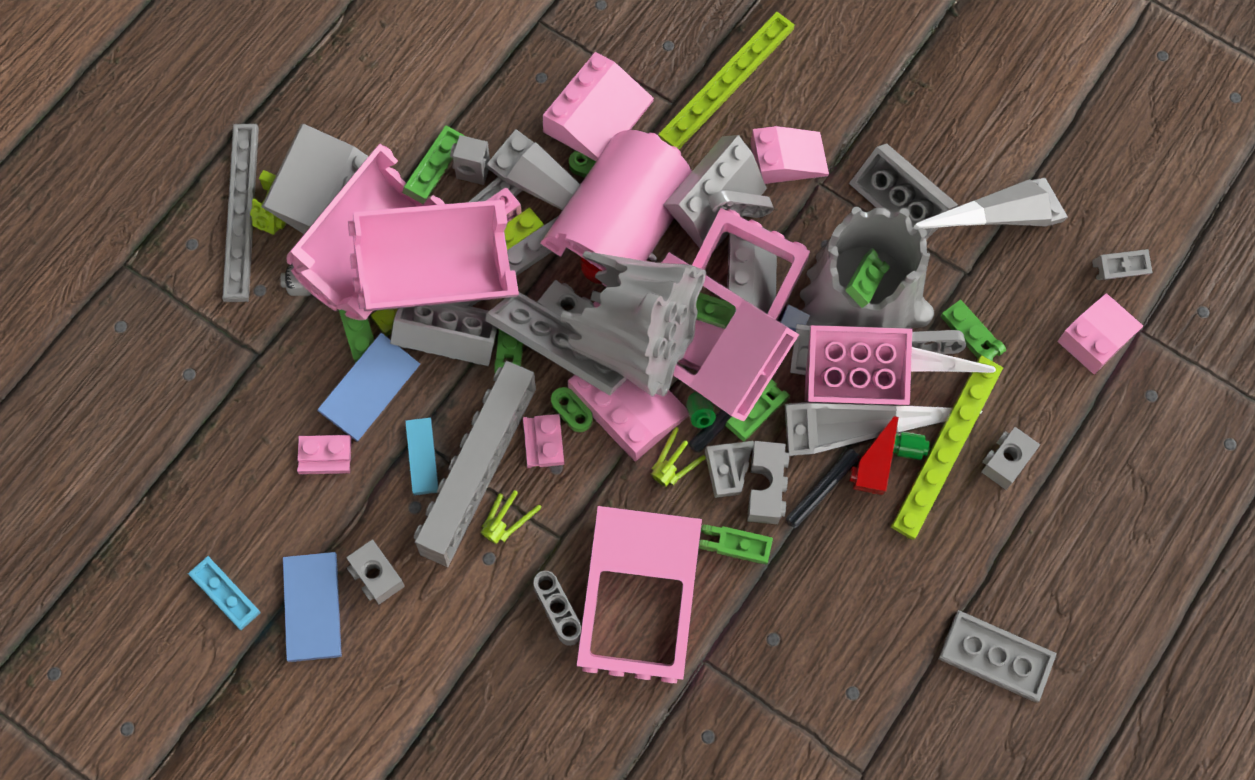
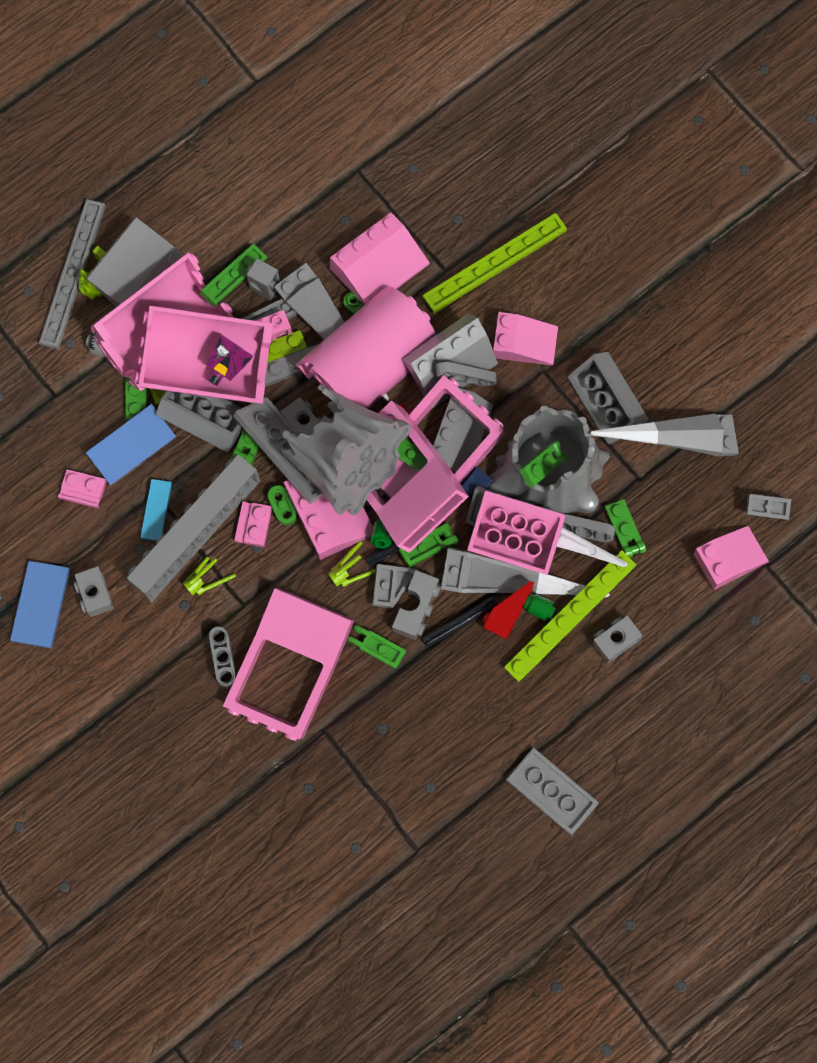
camera: 25 degrees right, 5 degrees up
(460, 256) = (227, 360): none -> torso

